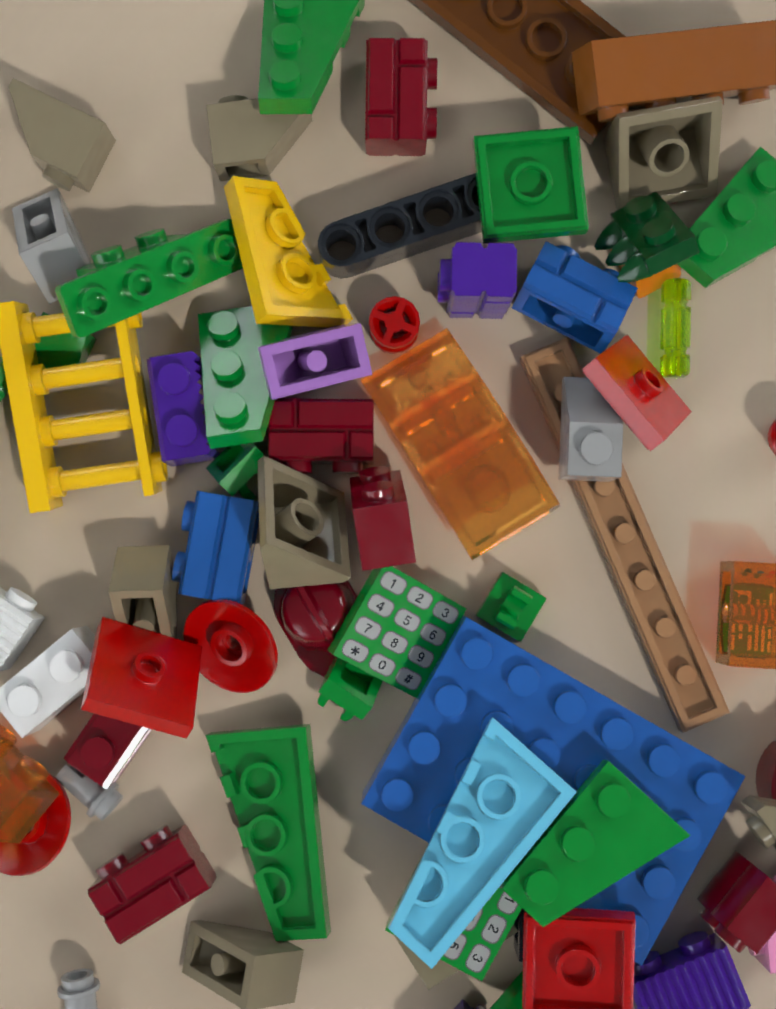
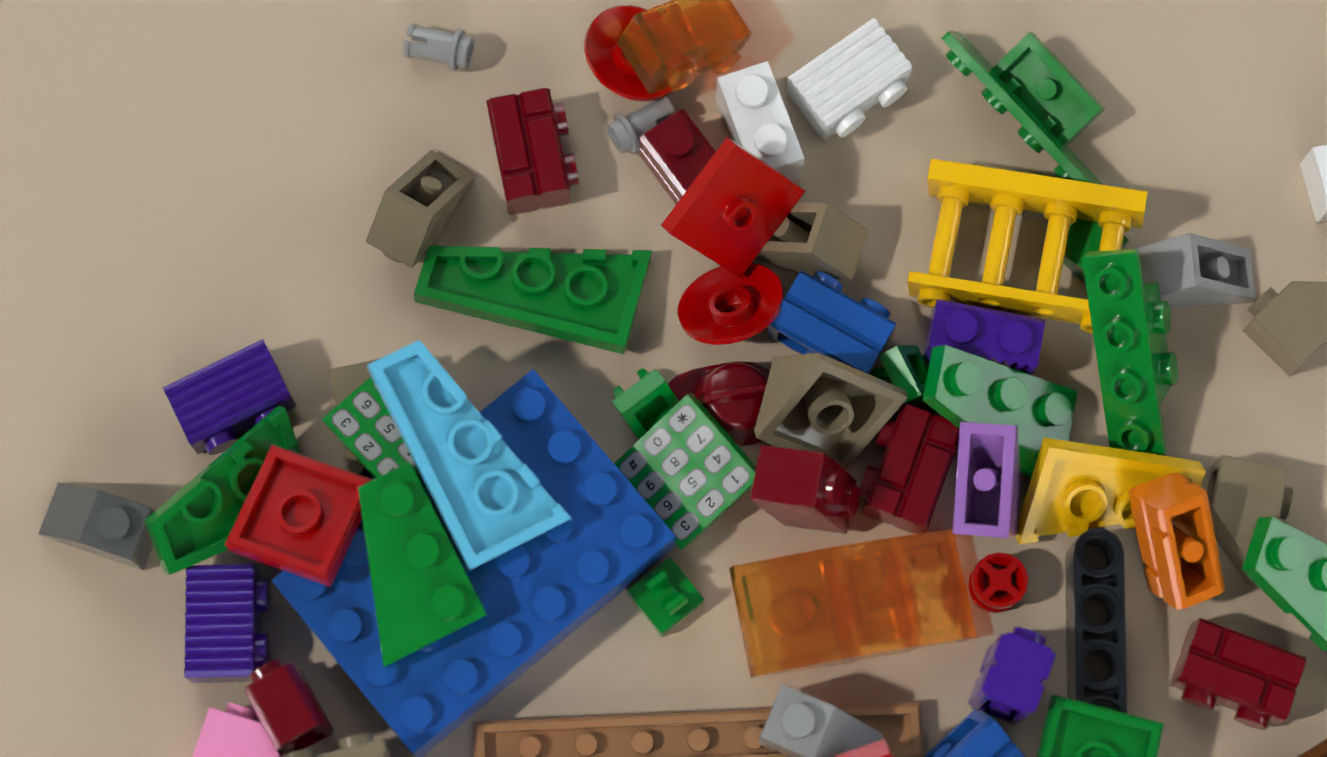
camera: 110 degrees right, 10 degrees down
(305, 179) = (1177, 540): none -> orange brick

